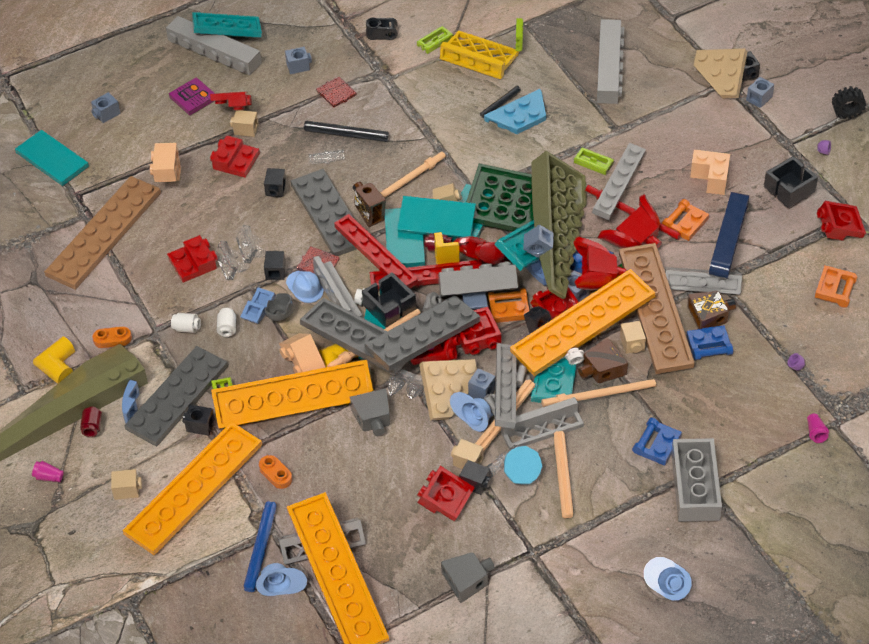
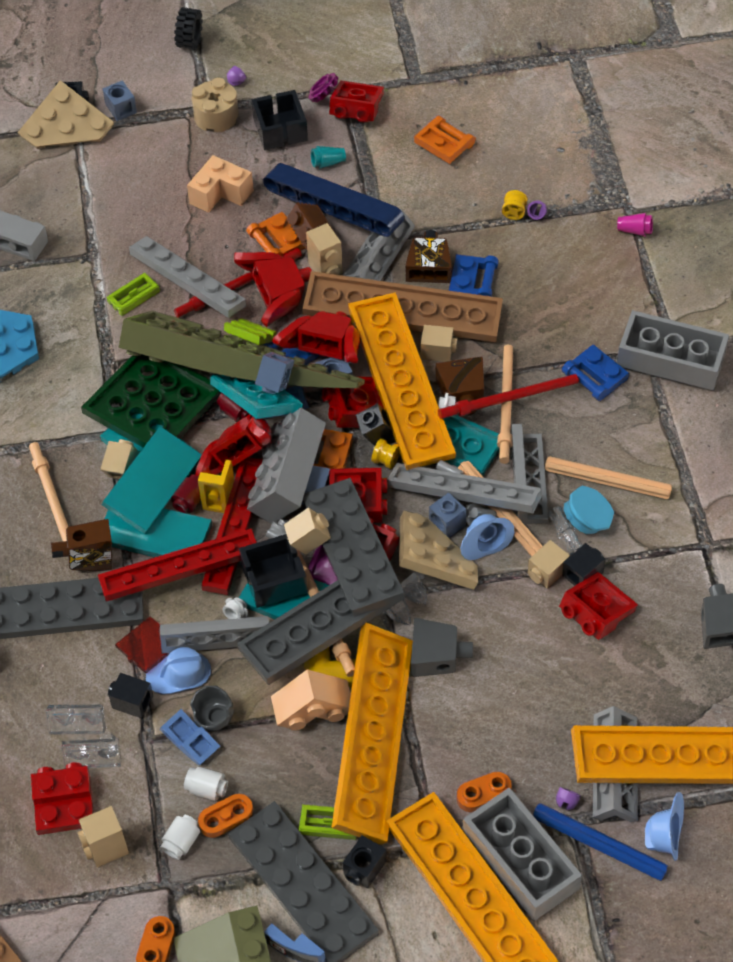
camera: 70 degrees left, 5 degrees up
(167, 282) = (102, 837): none -> tan brick
(209, 341) = (224, 815): none -> orange plate
(229, 499) = (522, 854): none -> light grey brick
(284, 519) = (567, 796): none -> medium lavender hinge
(418, 301) = (307, 531): none -> tan brick
(518, 333) = (385, 454): none -> yellow wheel
(574, 364) = (465, 407): none -> red bar
(591, 223) = (250, 331): none -> lime tile
(676, 244) = (324, 250): none -> tan brick
(699, 232) = (305, 218): none -> reddish brown brick
(776, 222) = (327, 156): none -> teal cone
(784, 142) = (215, 105): none -> tan brick
(791, 345) = (514, 205): none -> yellow wheel
(840, 197) = (323, 87): none -> magenta gear

